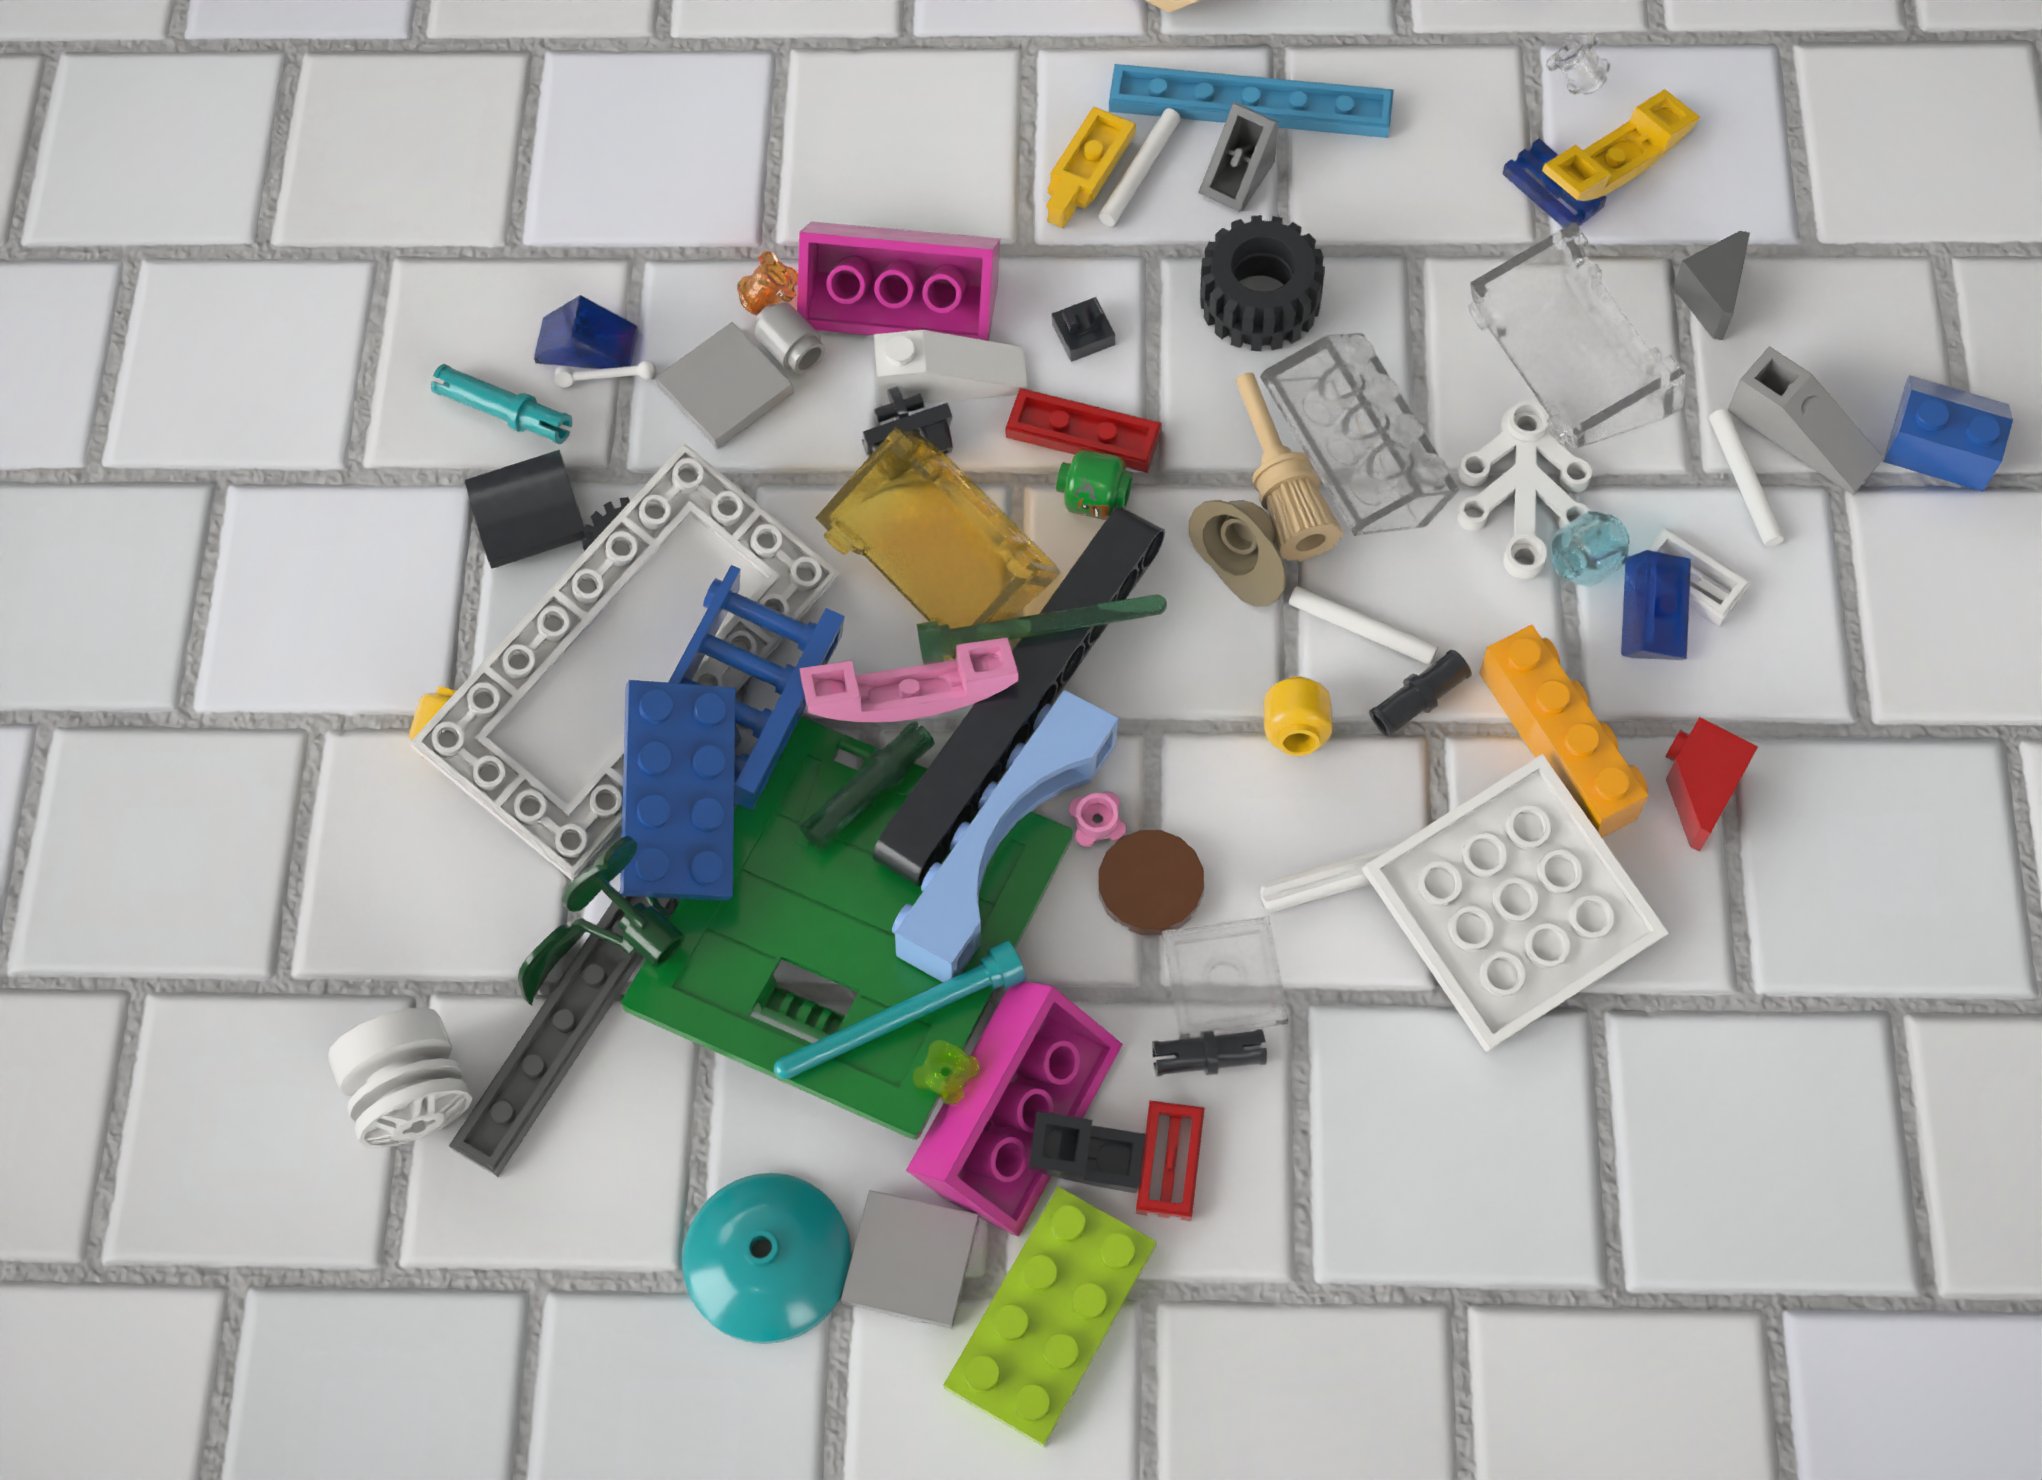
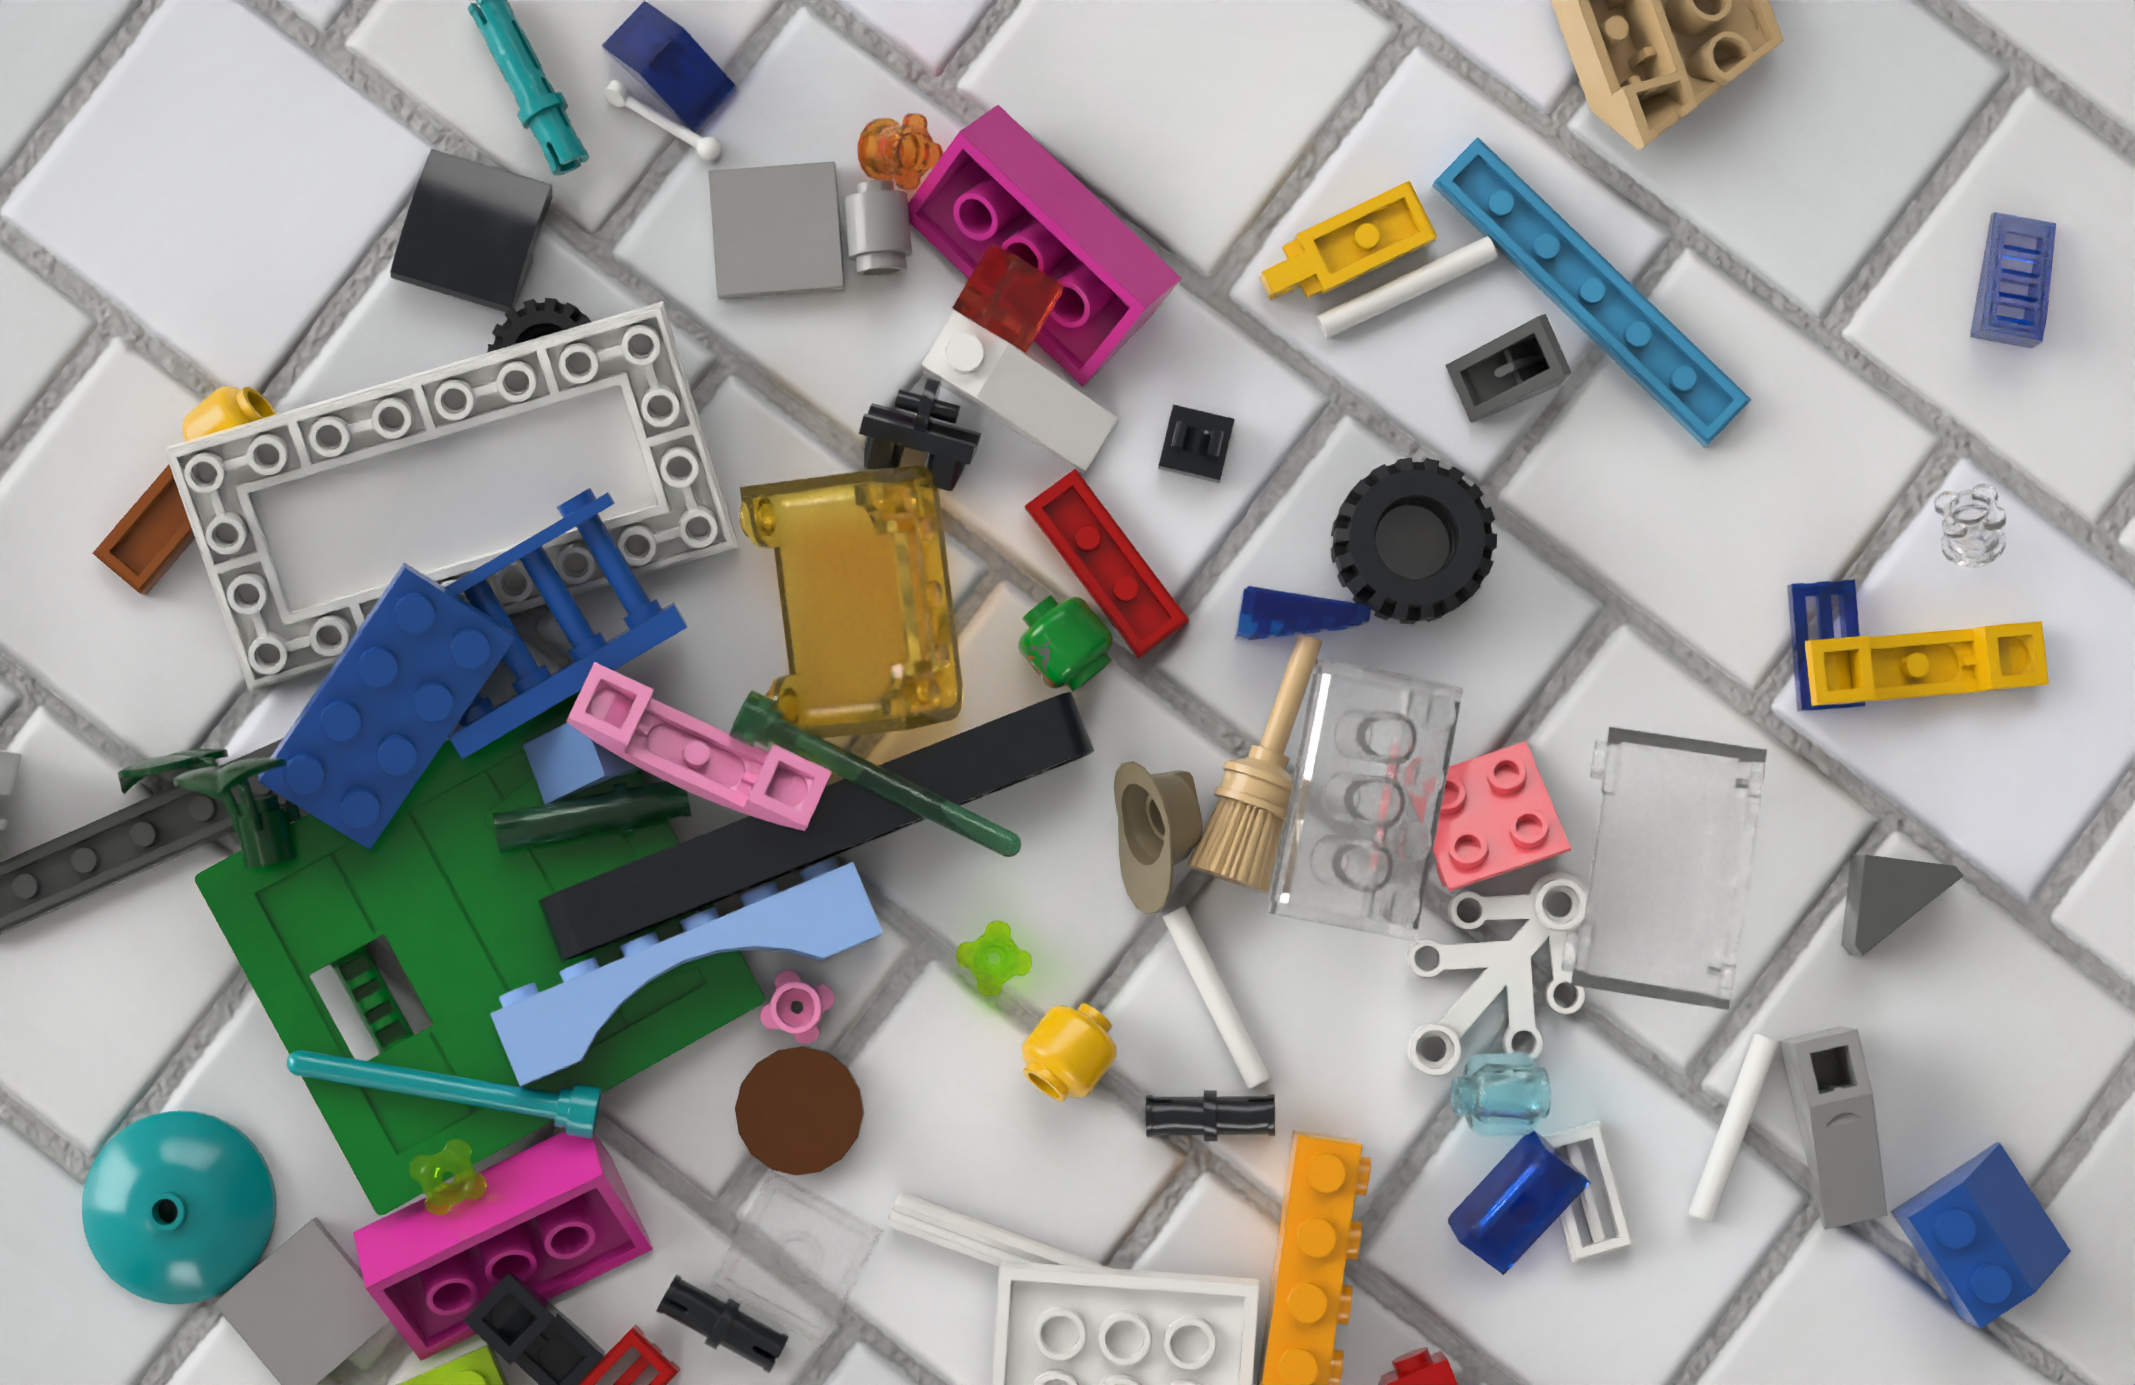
camera: 30 degrees right, 20 degrees up
(436, 825) = (148, 536): none -> dark orange tile
(834, 754) = (572, 763): none -> medium blue slope
(901, 304) = (1008, 297): none -> clear red panel
(1205, 686) = (975, 957): none -> clear neon green plate
(1214, 377) = (1279, 614): none -> clear blue slope
(1451, 402) = (1495, 818): none -> coral hinge

